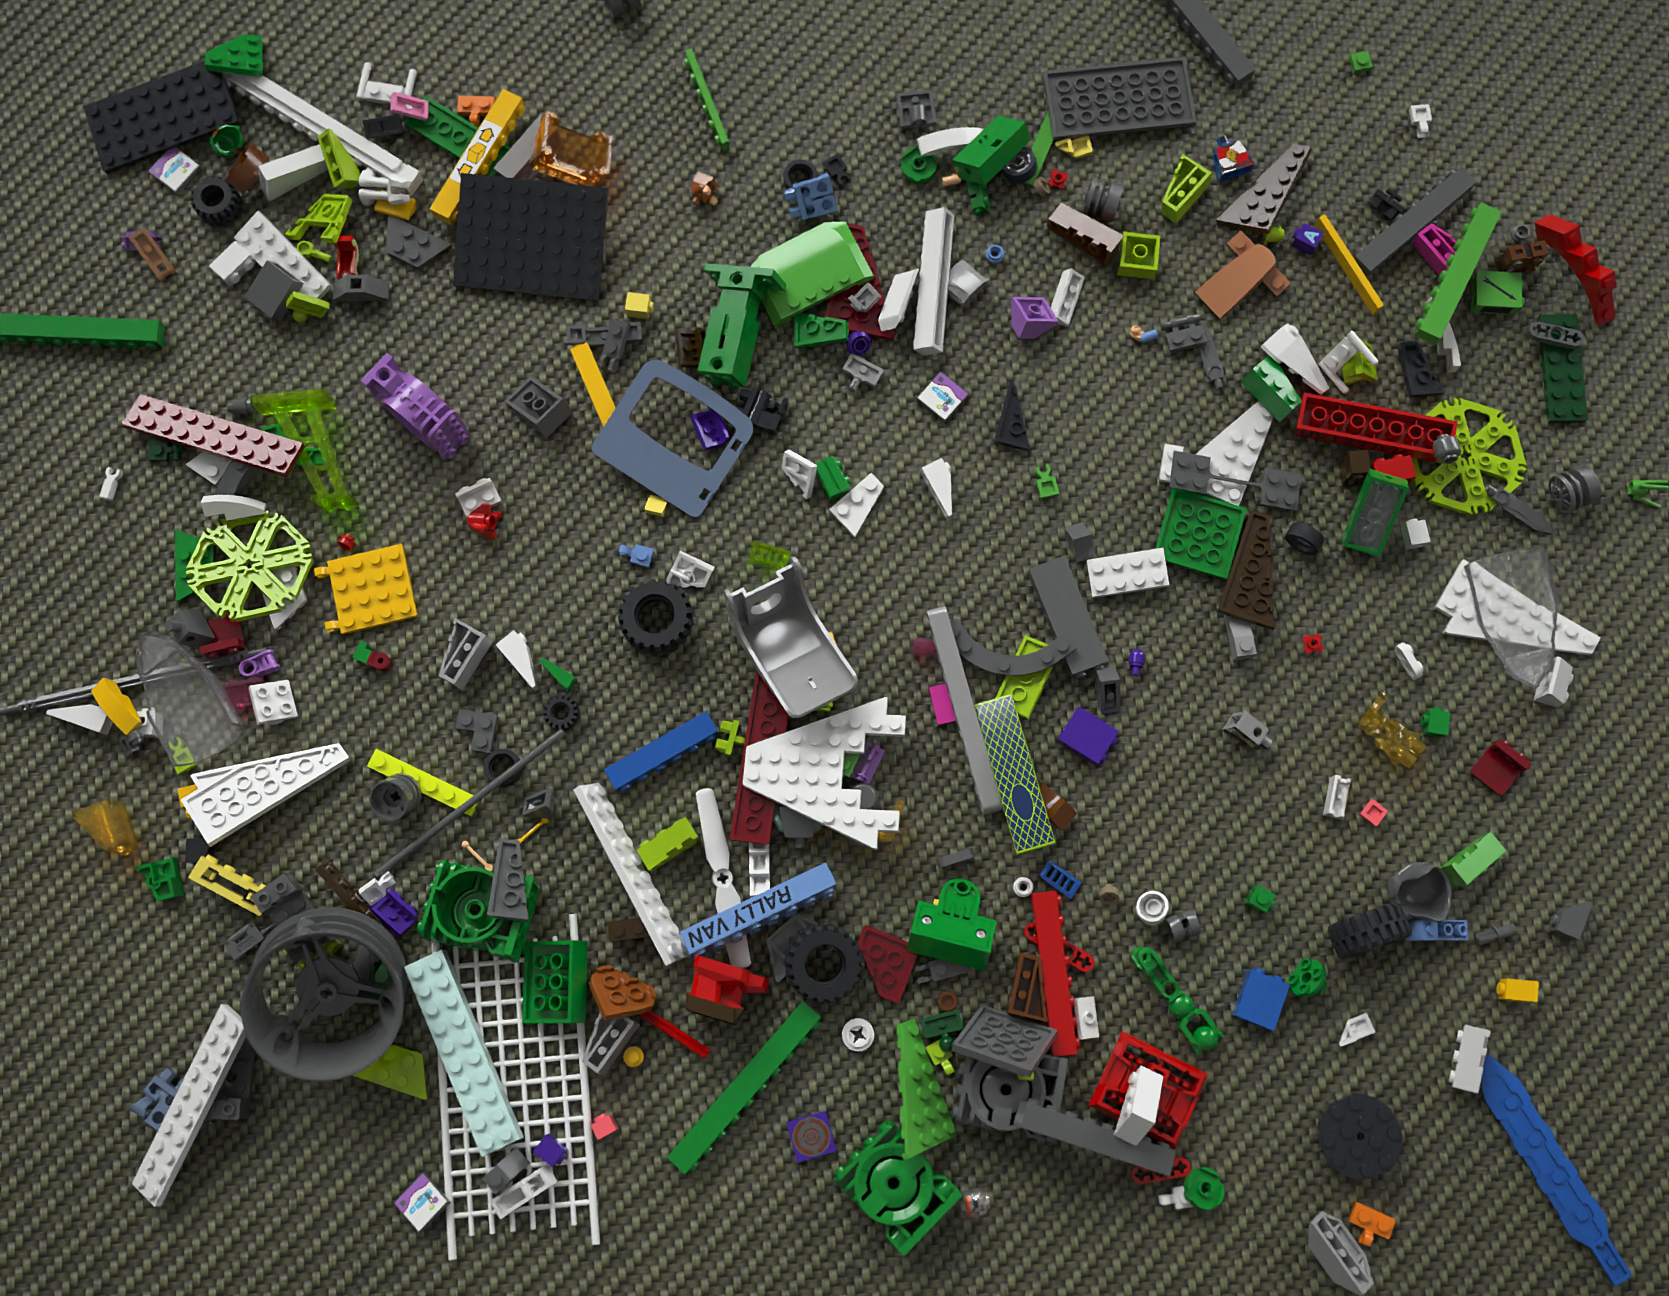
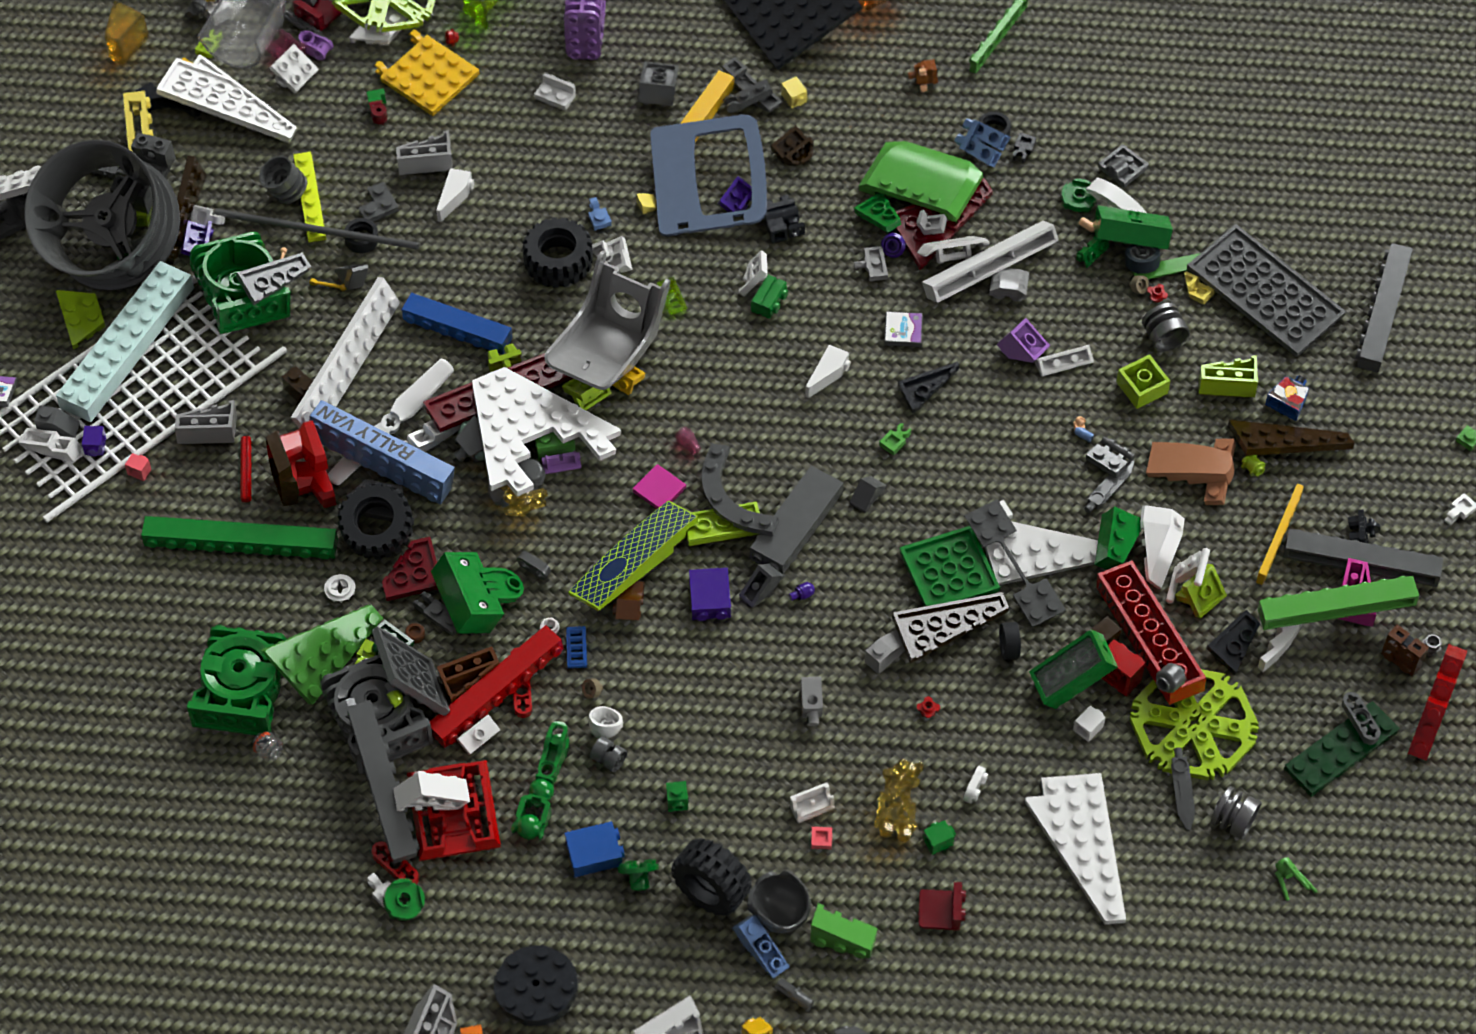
camera: 50 degrees right, 20 degrees down
(163, 878) = (111, 91): green slope -> none
(484, 521) = (539, 104): red brick -> none
(555, 982) = (224, 365): green slope -> none
(558, 701) = (434, 252): black tyre -> none
(563, 677) = (461, 225): green slope -> none
(620, 995) = (247, 408): dark orange plate -> none
(633, 1056) = (206, 453): yellow plate -> none
(668, 844) = (388, 370): lime wedge -> none
(733, 323) = (831, 153): green brick -> none
(811, 1136) = (235, 607): tile -> none
(856, 505) = (764, 327): white wing -> none
(964, 710) = (664, 484): light grey beam -> none
(995, 249) = (1057, 287): medium blue plate -> none
(1085, 234) = (1126, 333): wedge -> none
(1128, 573) = (870, 538): white plate -> none
(1306, 238) = (1273, 491): dark purple brick -> none
(1356, 1028) = (627, 938): white slope -> none
(1496, 292) = (1360, 655): bright green brick -> none
(1517, 610) = (1074, 817): clear windscreen -> none
(1555, 684) = (1051, 901): white slope -> none

